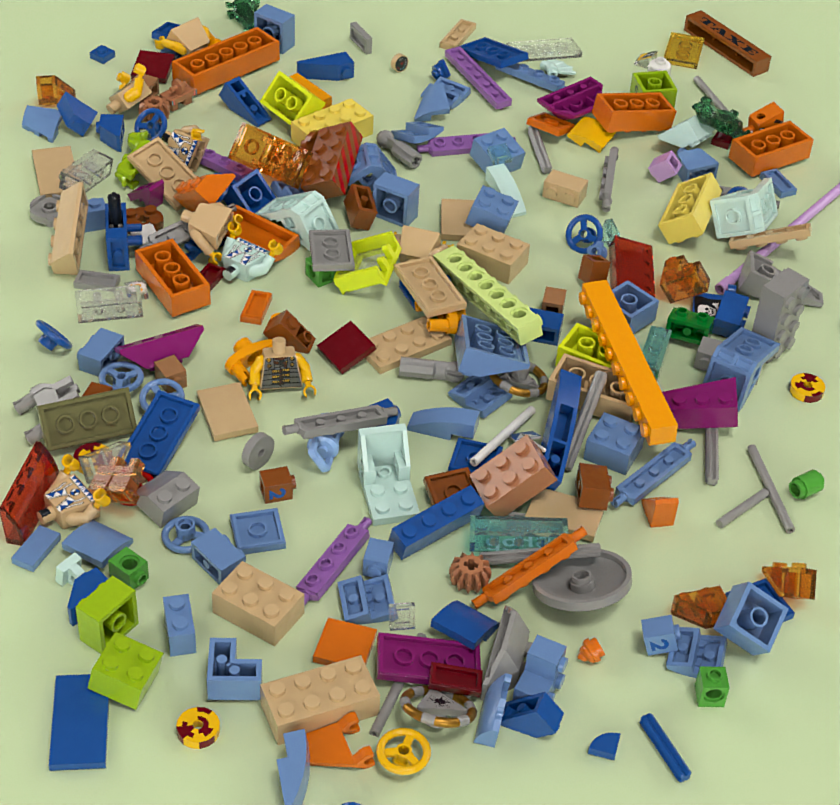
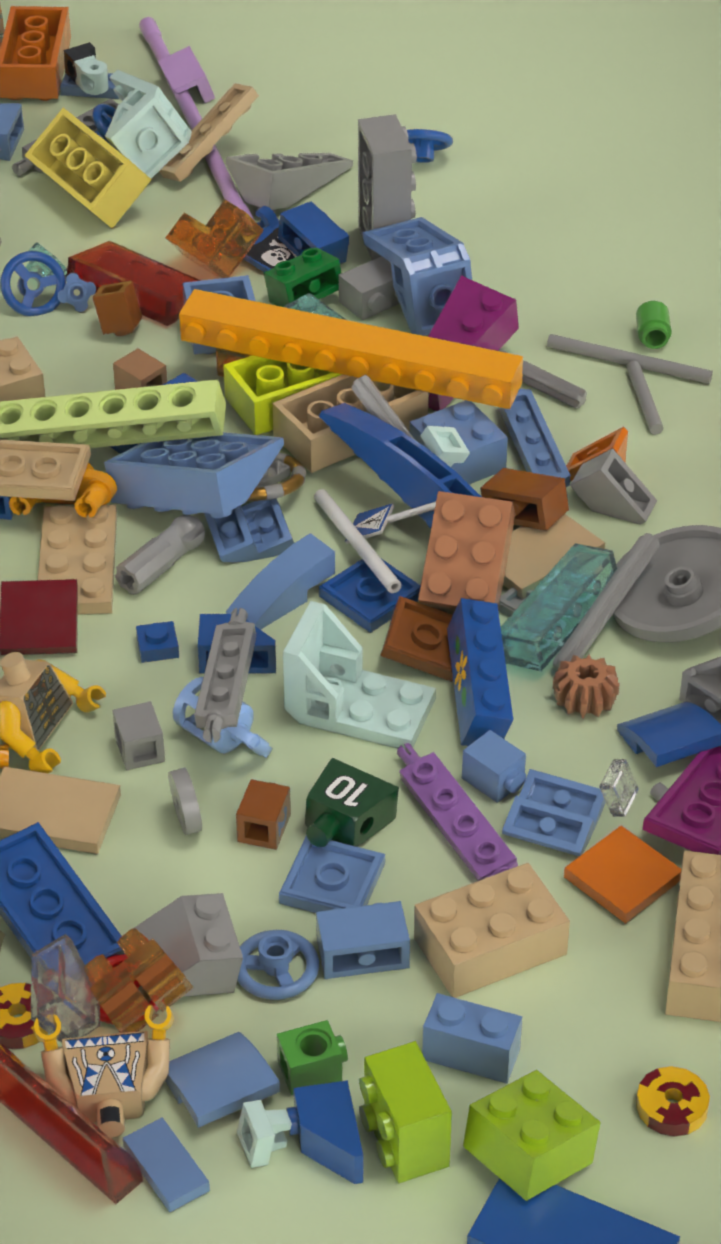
camera: 55 degrees left, 0 degrees up
(231, 677) = (612, 1018): medium blue brick -> none
(292, 410) = (138, 735): none -> light grey brick
(302, 512) = (348, 805): none -> dark green torso
(369, 395) = (157, 641): none -> blue plate
(530, 568) = (635, 619): orange plate -> none
(588, 430) = (445, 444): none -> light aqua tile
(641, 523) = (613, 489): none -> light grey slope
(778, 168) = (85, 69): none -> light aqua leg
(807, 387) = (486, 246): yellow piece -> none
(823, 209) = (185, 72): none -> lavender panel

